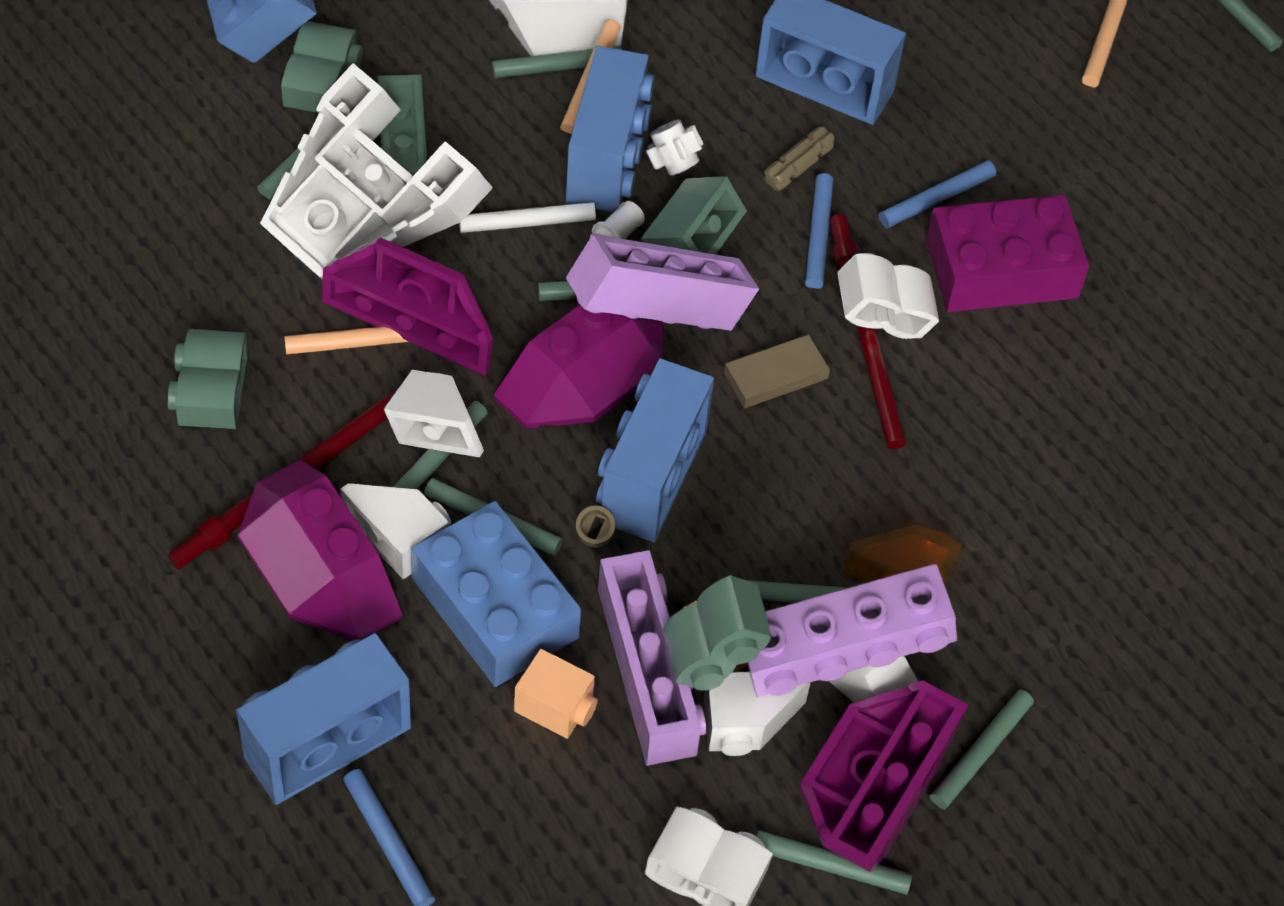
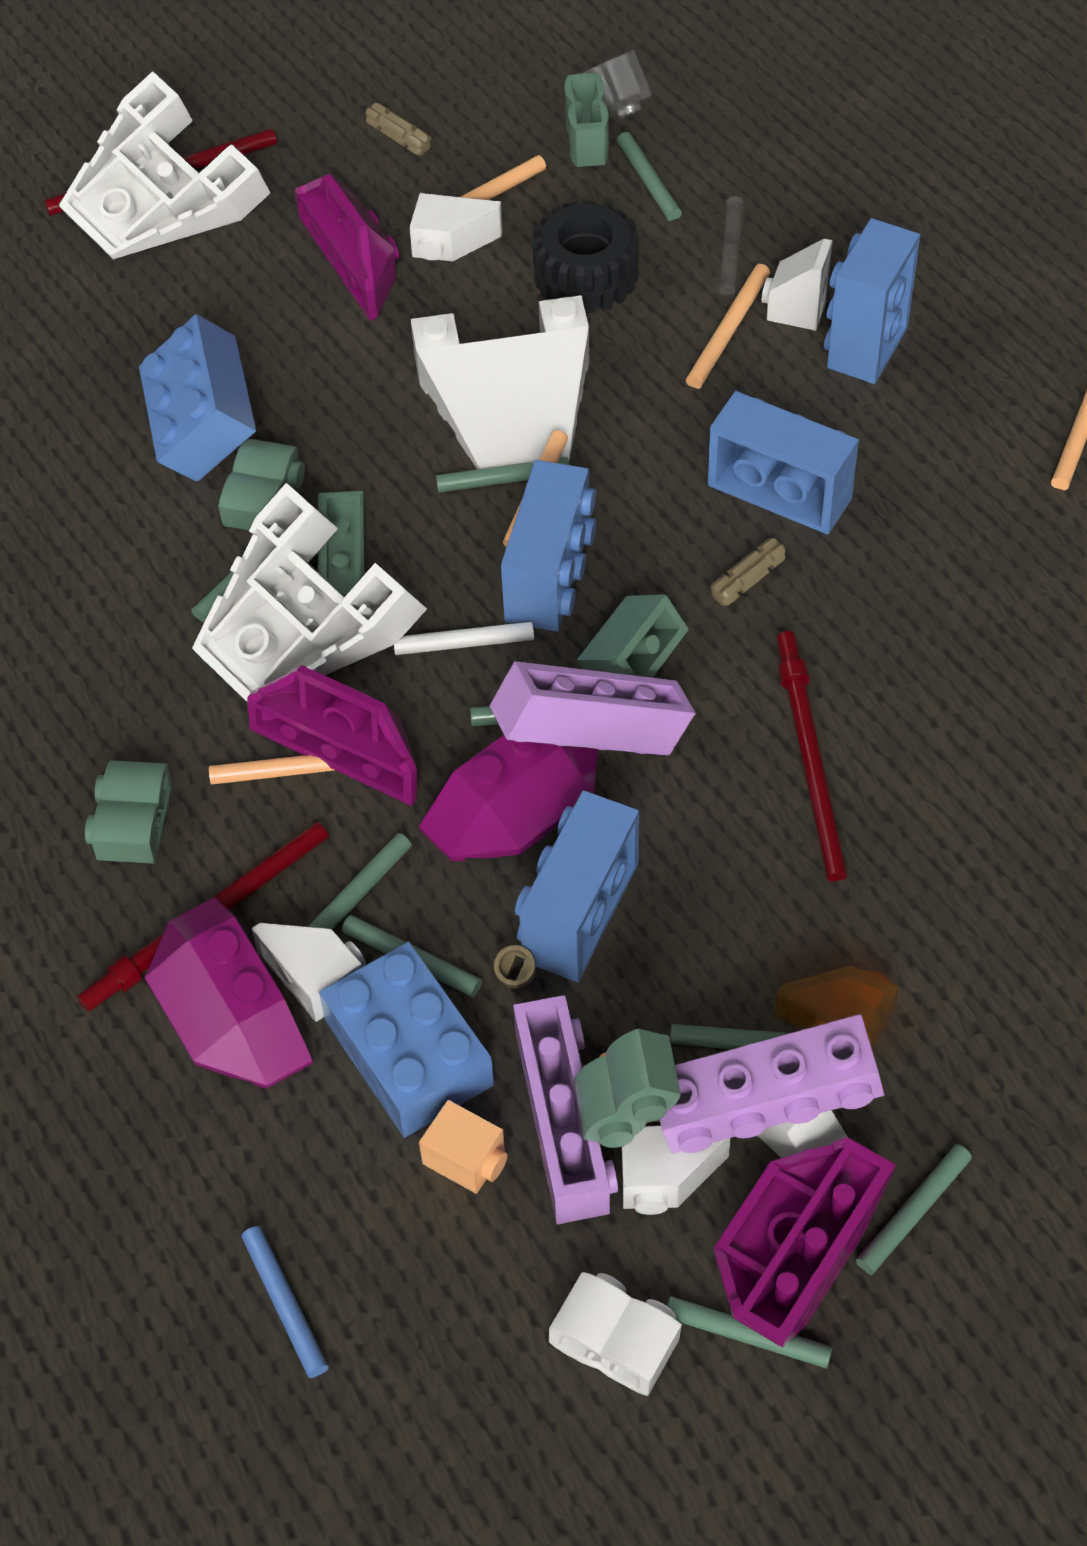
camera: 10 degrees right, 0 degrees up
(324, 717) = (221, 1173): medium blue brick -> none
(432, 415) = (352, 849): white slope -> none
(621, 222) = (556, 645): white pin -> none
(674, 147) = (617, 562): white gear -> none
(776, 371) = (713, 798): dark tan tile -> none
(819, 231) = (766, 649): medium blue bar -> none
(887, 296) = (832, 718): white brick -> none
(937, 194) = (892, 607): medium blue bar -> none
(1006, 253) = (961, 670): magenta brick -> none

